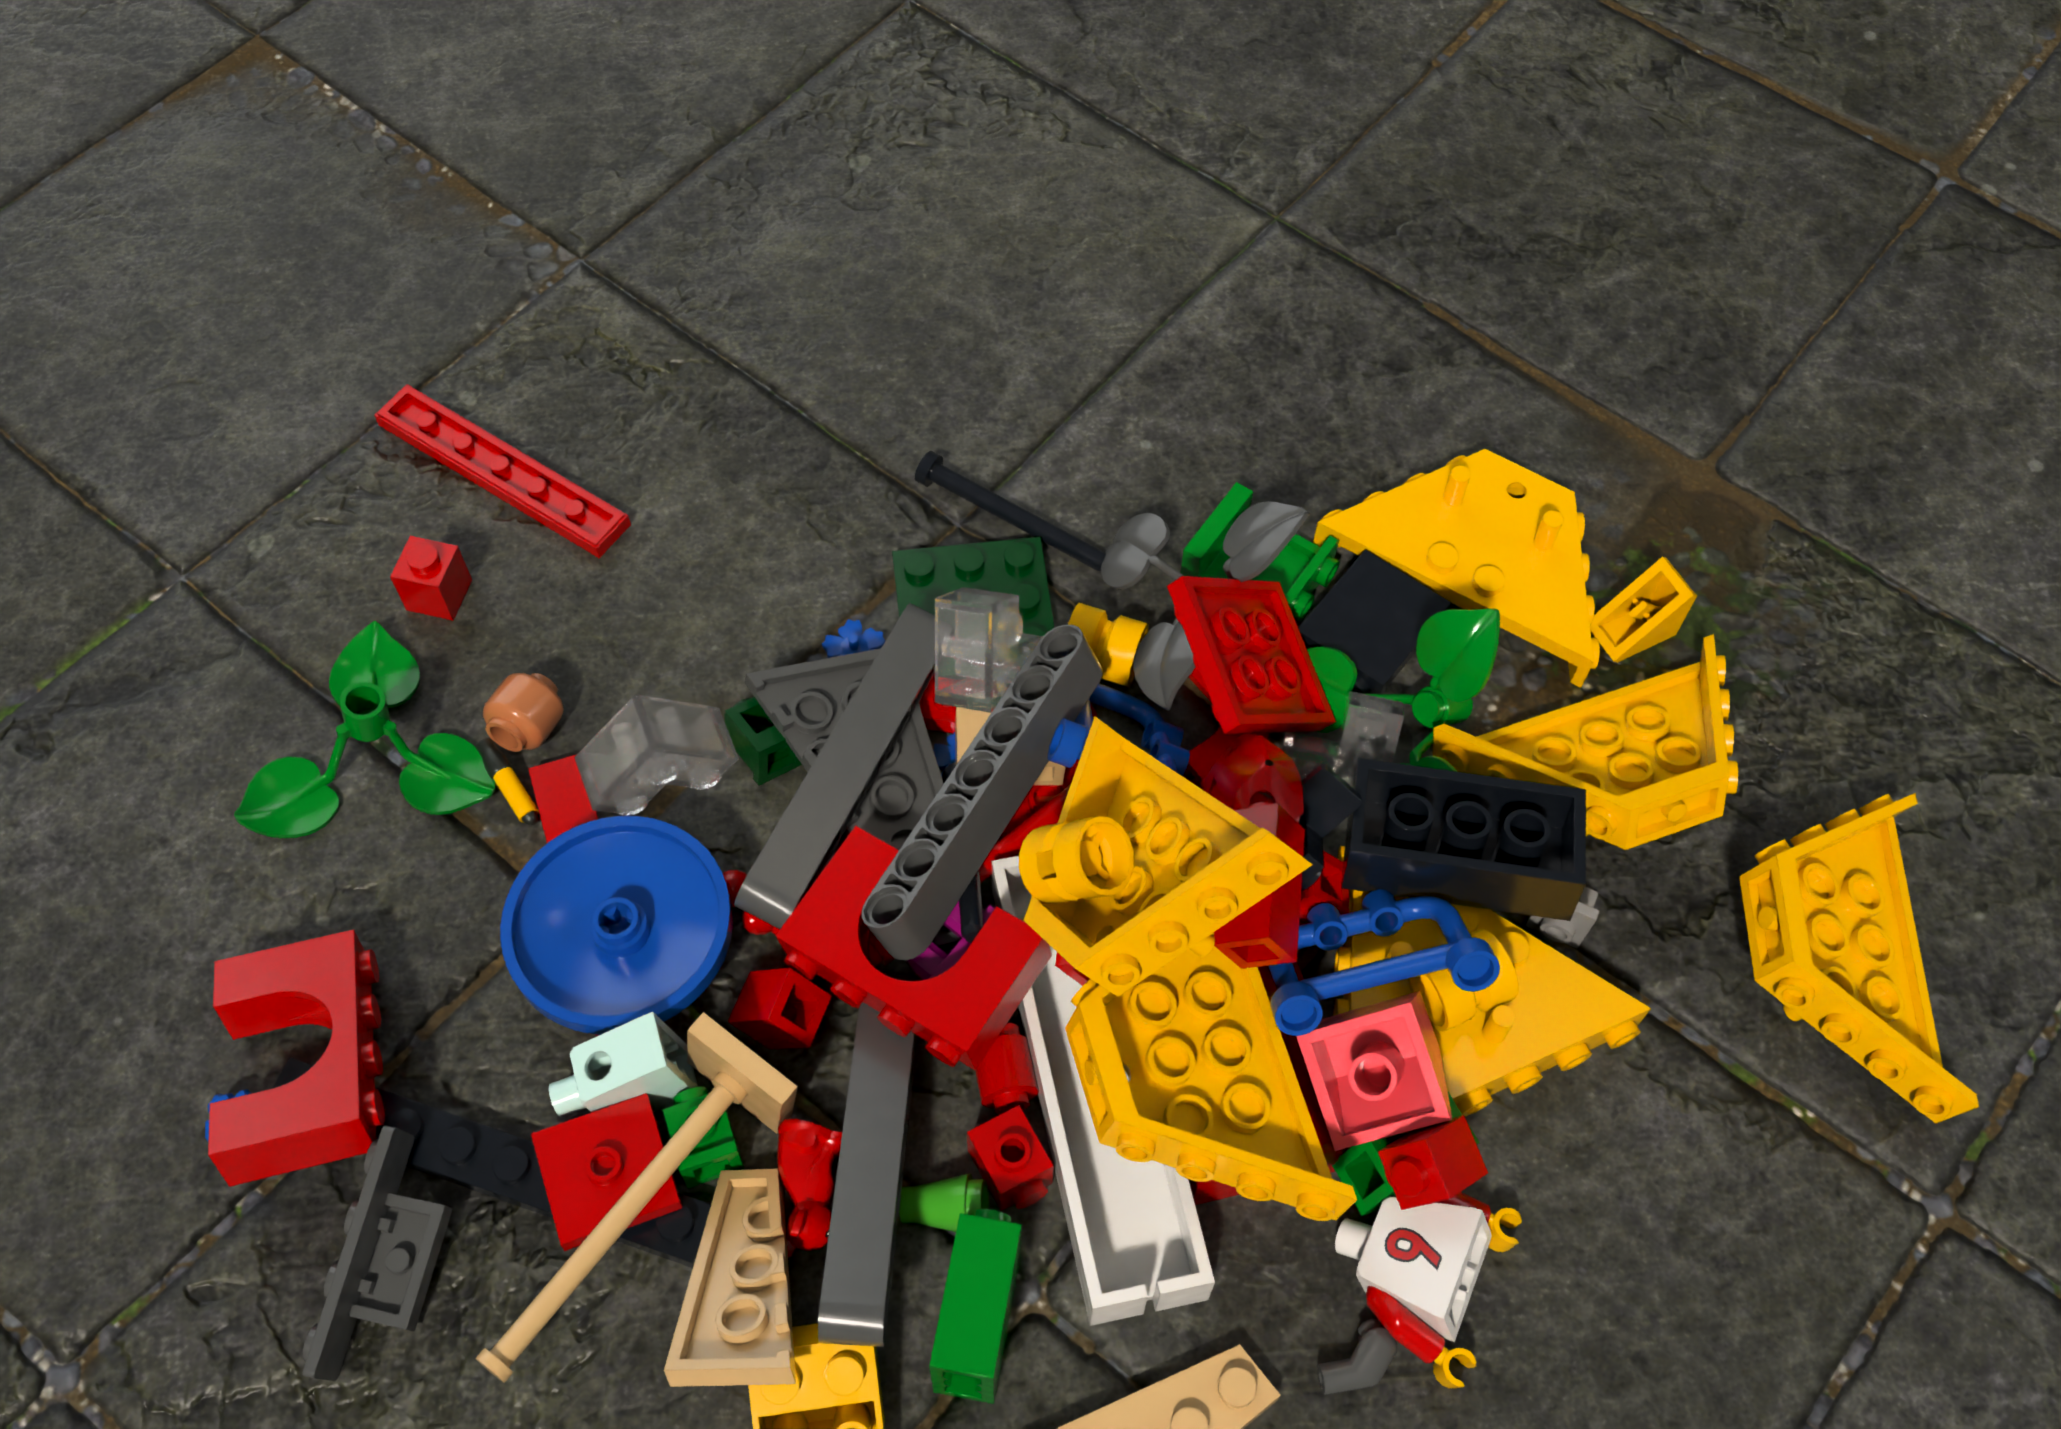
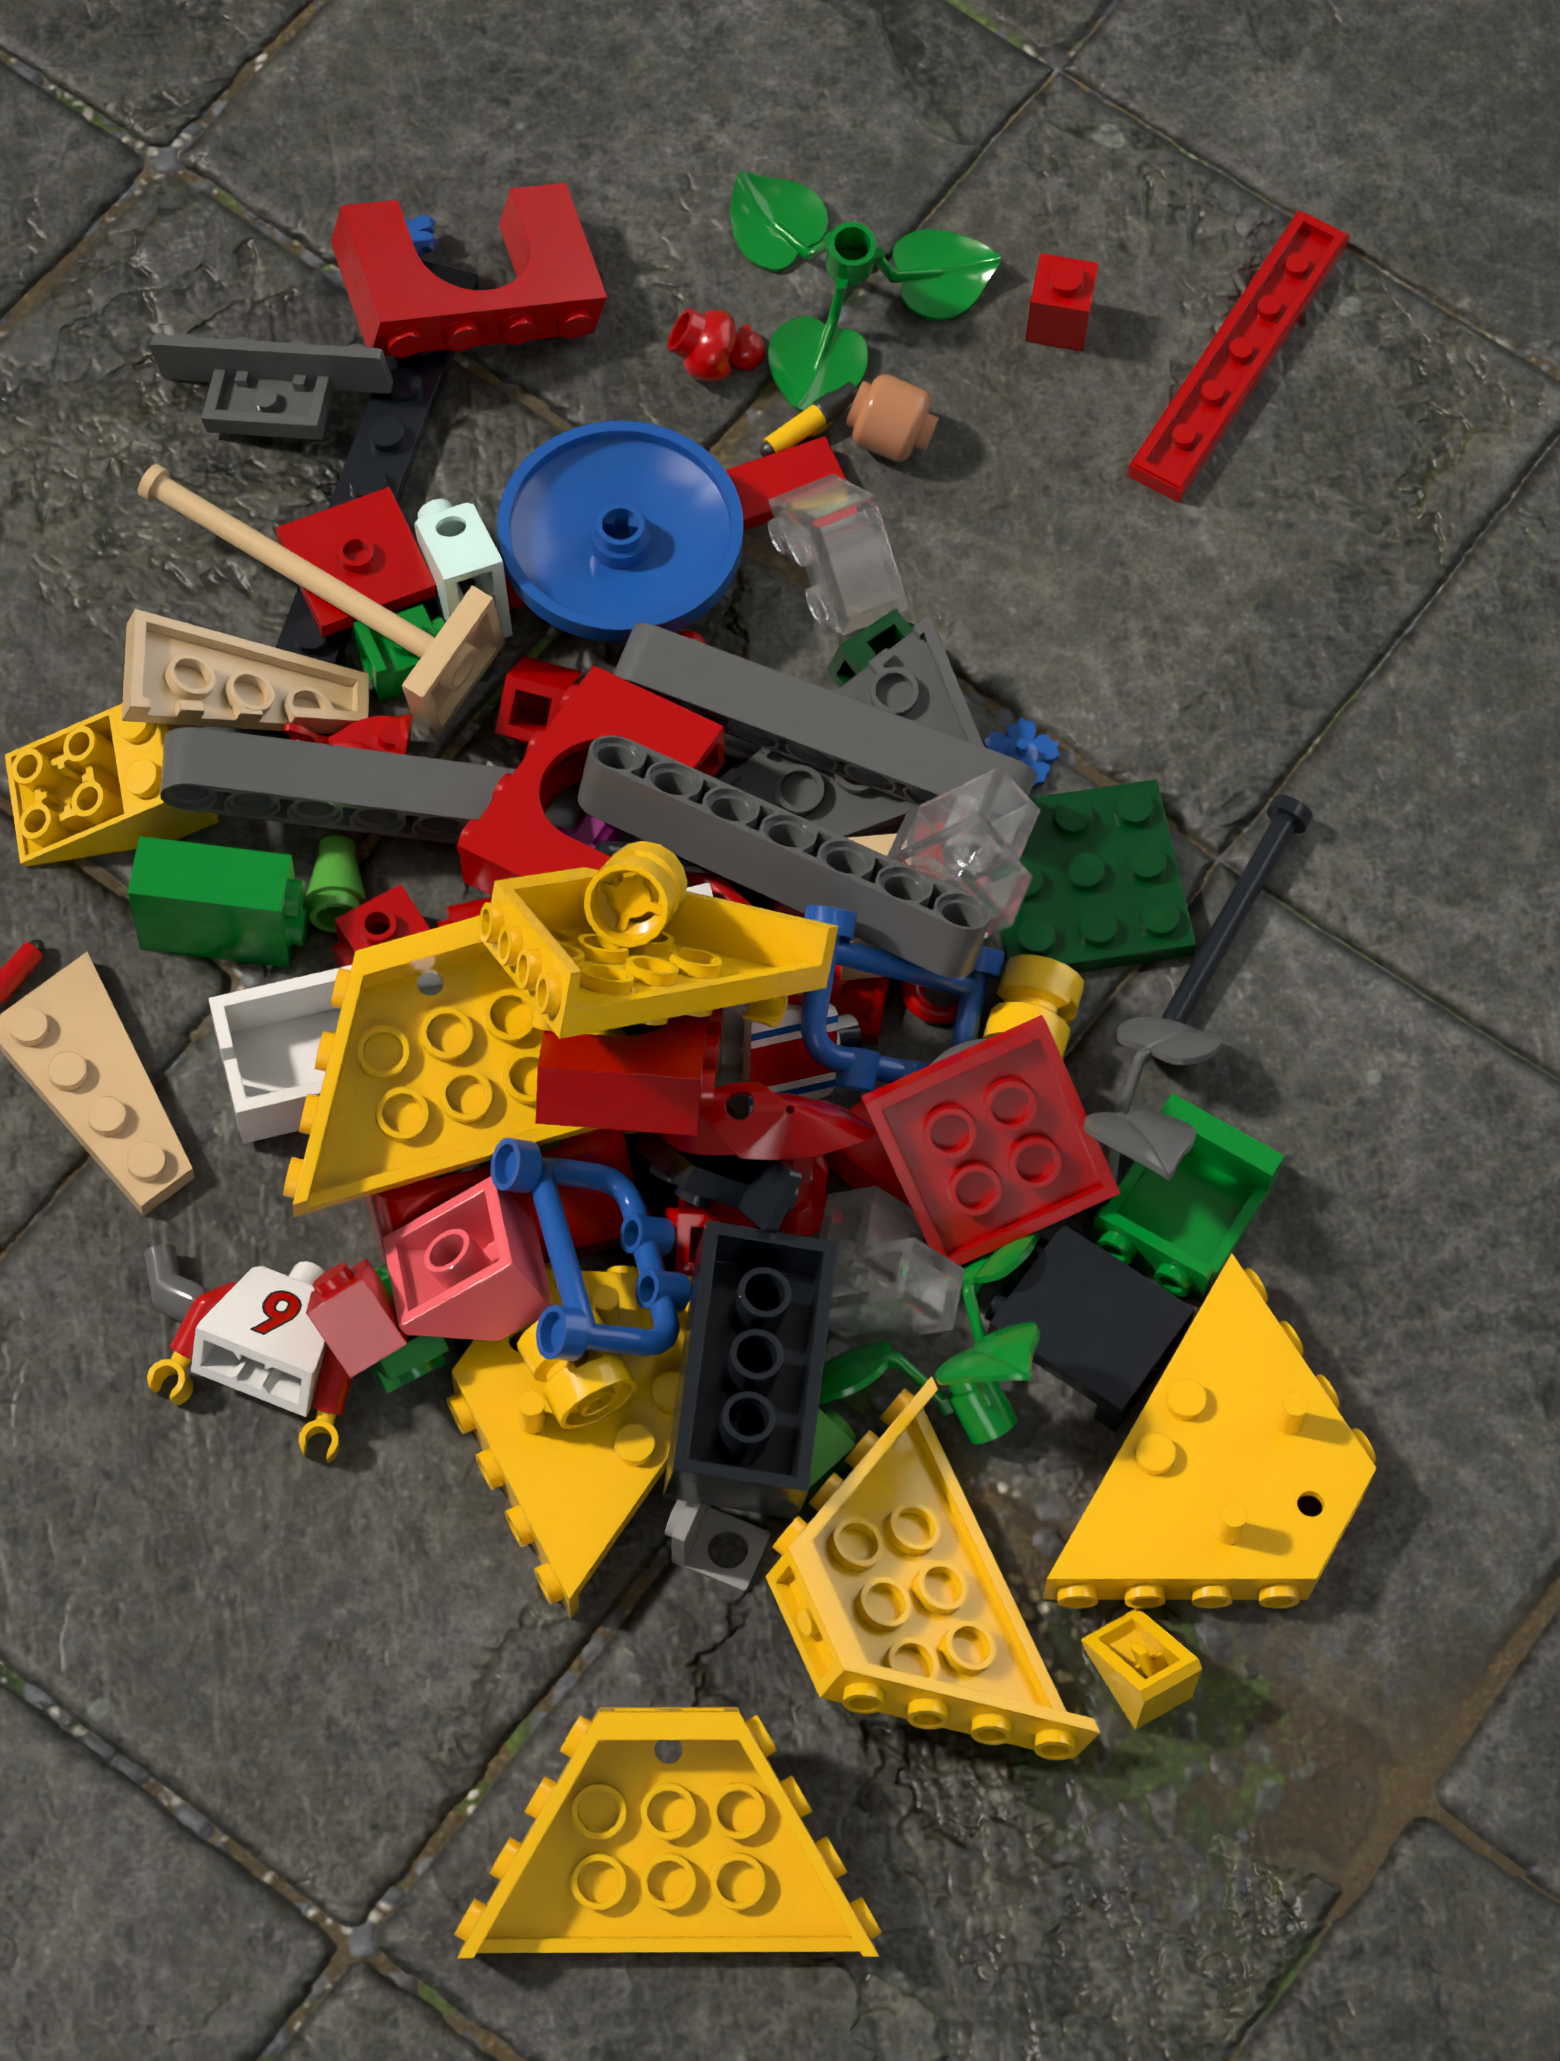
camera: 85 degrees right, 5 degrees up
(415, 853) = (711, 344): none -> red animal

